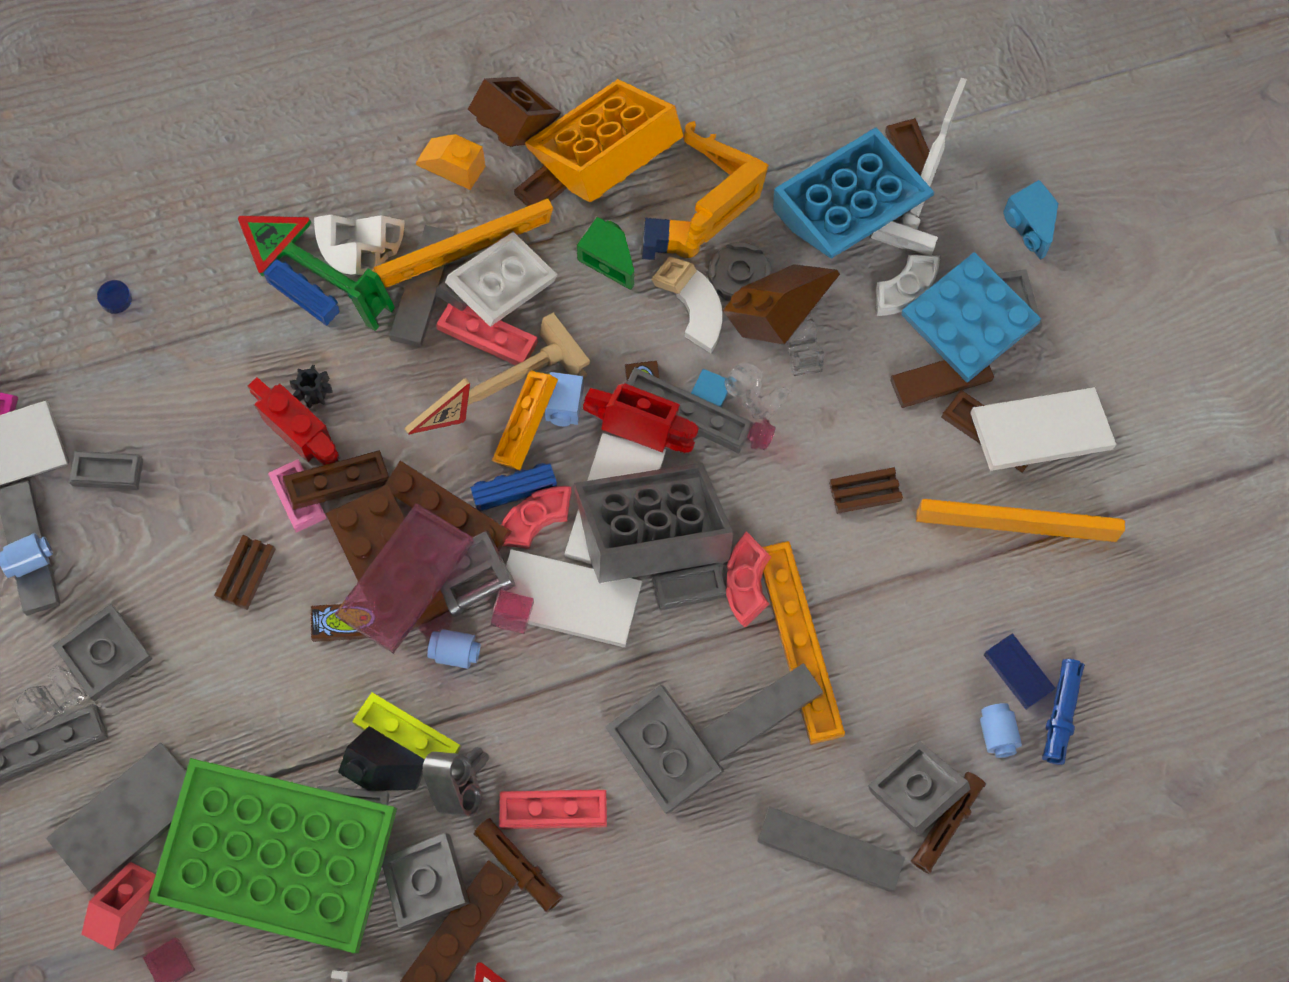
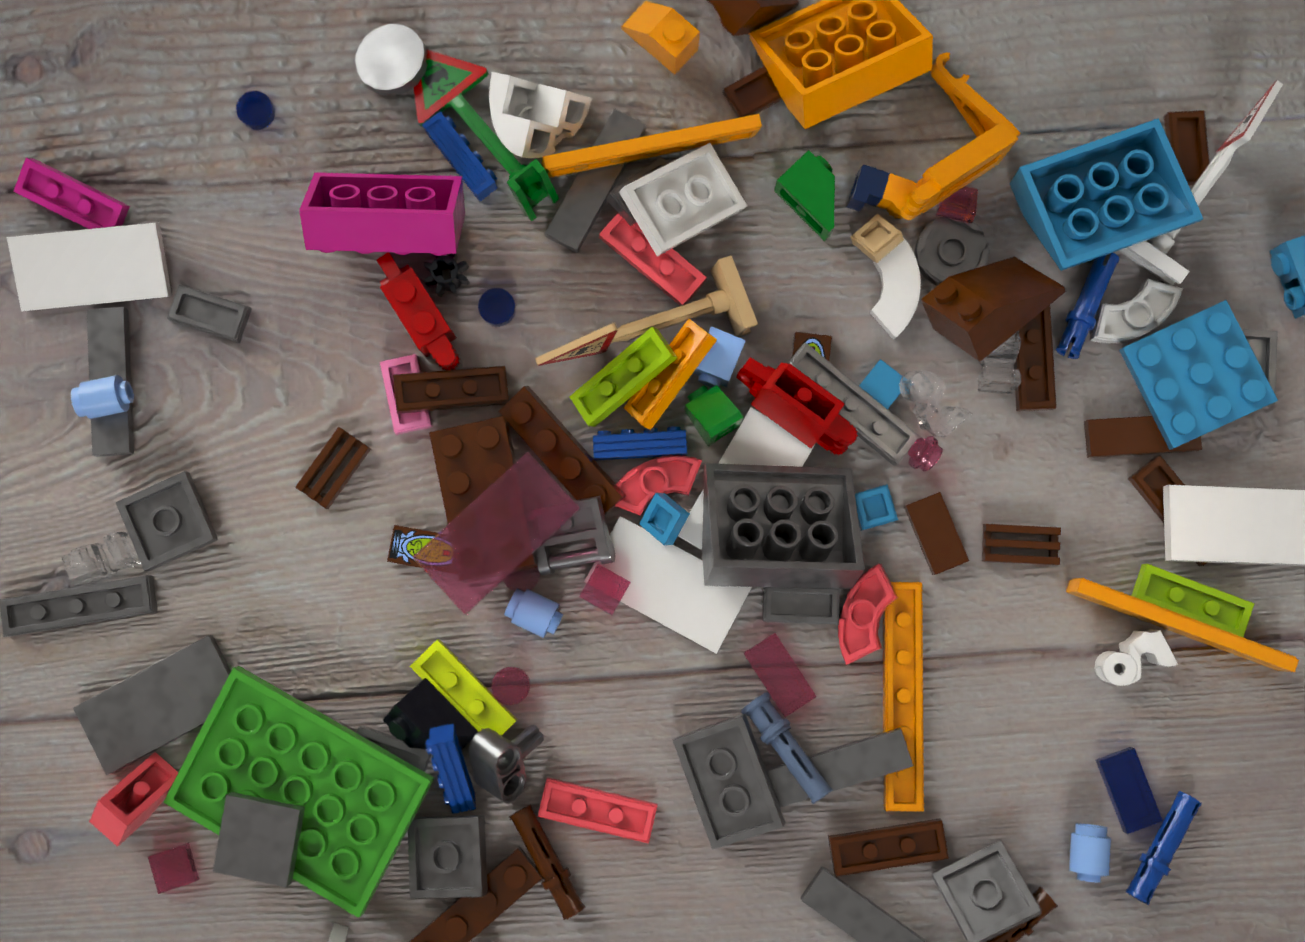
camera: 15 degrees right, 15 degrees up
(225, 229) = (391, 59): none -> tile
(245, 347) = (383, 213): none -> dark pink brick
(246, 905) = (258, 839): none -> flat silver tile
(361, 405) = (497, 307): none -> clear blue tile
(410, 793) = (452, 768): none -> blue piece
(448, 718) = (510, 685): none -> clear pink tile
(484, 432) = (623, 377): none -> lime plate
(550, 540) = (664, 519): none -> dark azure plate
(571, 444) = (712, 413): none -> green slope
(686, 650) = (779, 674): none -> clear pink tile
(695, 696) = (776, 732): none -> sand blue pin
(732, 490) = (875, 507): none -> dark azure tile
(735, 233) = (960, 205): none -> clear pink tile
(790, 499) = (936, 533): none -> reddish brown tile
(822, 775) = (888, 847): none -> reddish brown tile
(832, 335) = (1036, 365): none -> reddish brown tile
(863, 298) = (1082, 317): none -> blue pin
(981, 566) = (1125, 666): none -> white leg
(1024, 495) = (1193, 599): none -> lime plate

